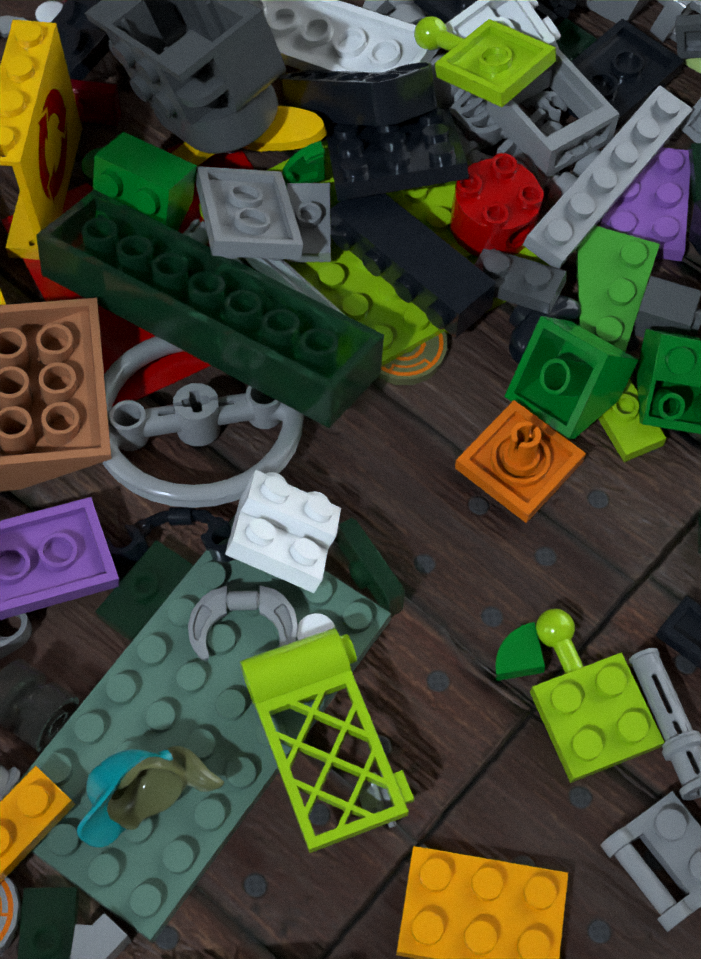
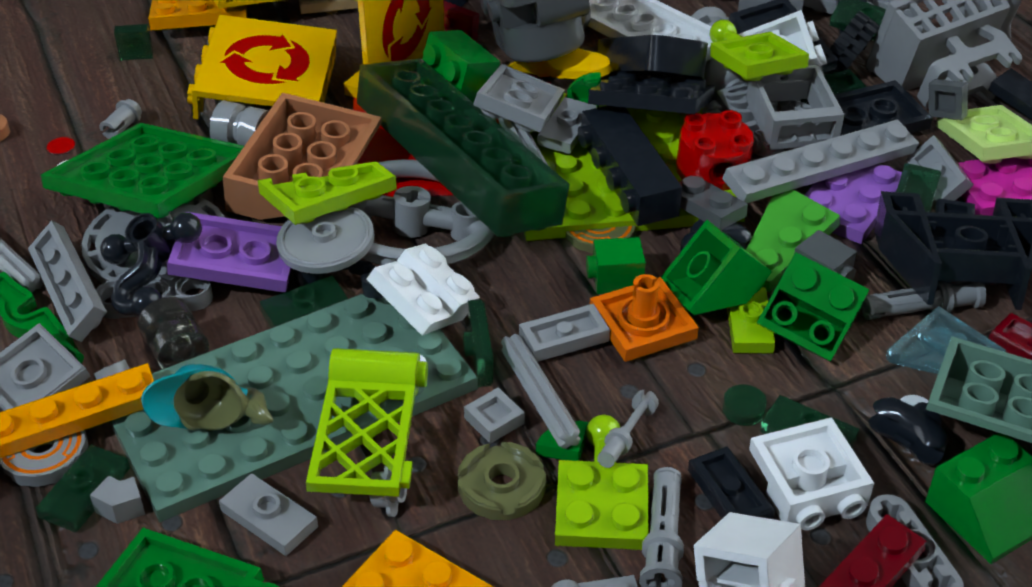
camera: 25 degrees right, 20 degrees down
(105, 448) = (316, 196): none -> lime wing
(133, 503) = (327, 242): none -> light grey shield
(217, 601) = (344, 320): light grey piece -> none
(267, 883) = (268, 514): none -> light grey plate
(434, 655) = (494, 415): none -> light grey plate
(449, 514) = (564, 332): none -> light grey plate
(459, 400) = (615, 263): none -> green brick
(467, 605) = (540, 391): none -> light grey axle
(471, 757) = (501, 500): none -> olive tile
(583, 639) = (619, 440): none -> light grey piece
(670, 528) = (744, 404): none -> clear green tile

